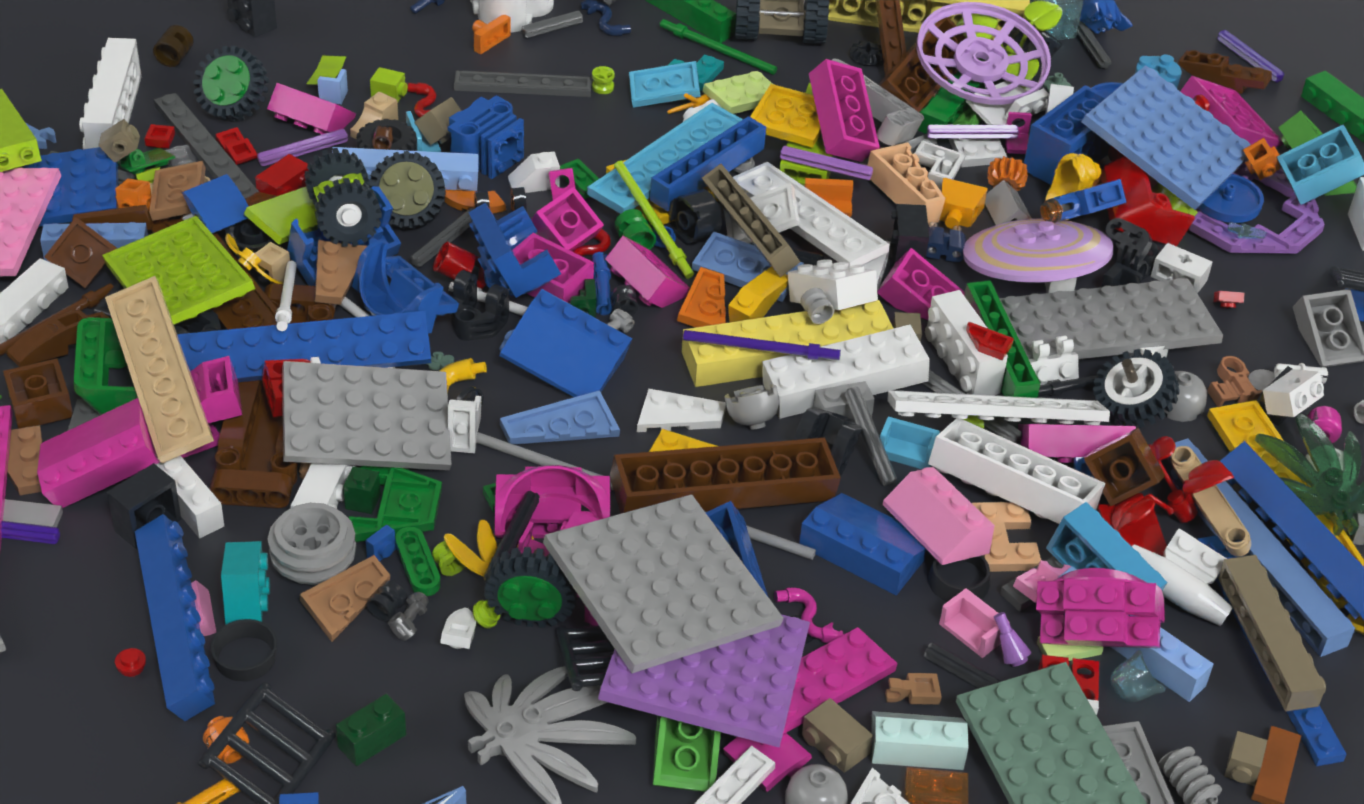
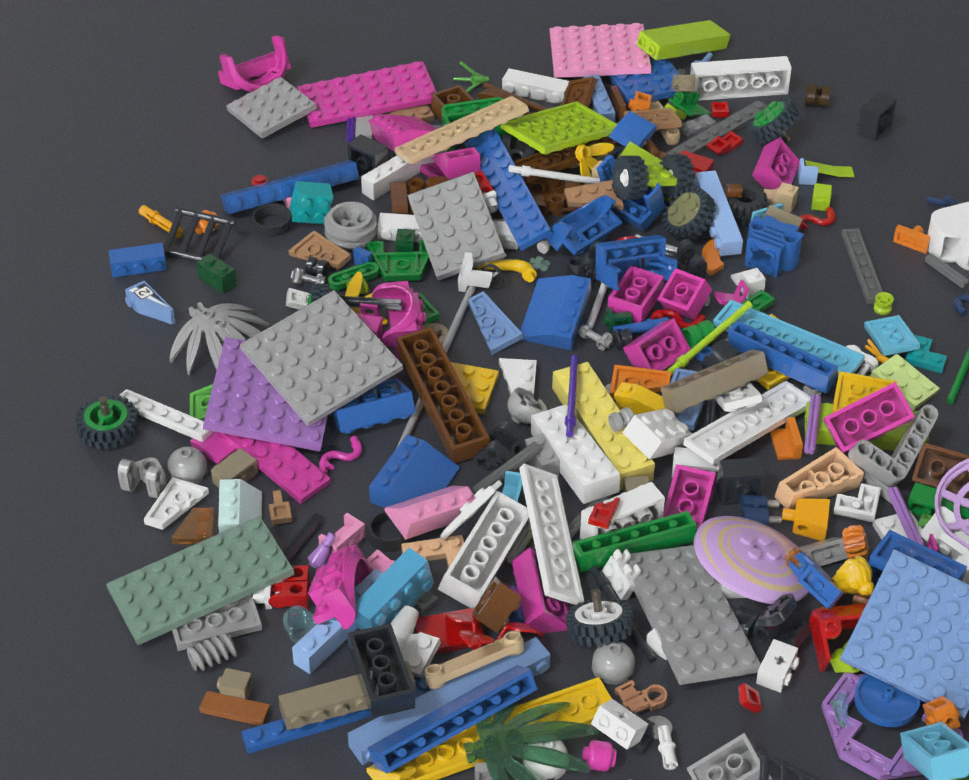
camera: 85 degrees right, 0 degrees up
(303, 147) = (735, 170): medium lavender axle -> none
(955, 468) = (470, 509): none -> white plate
(1264, 571) = (381, 670): none -> black brick

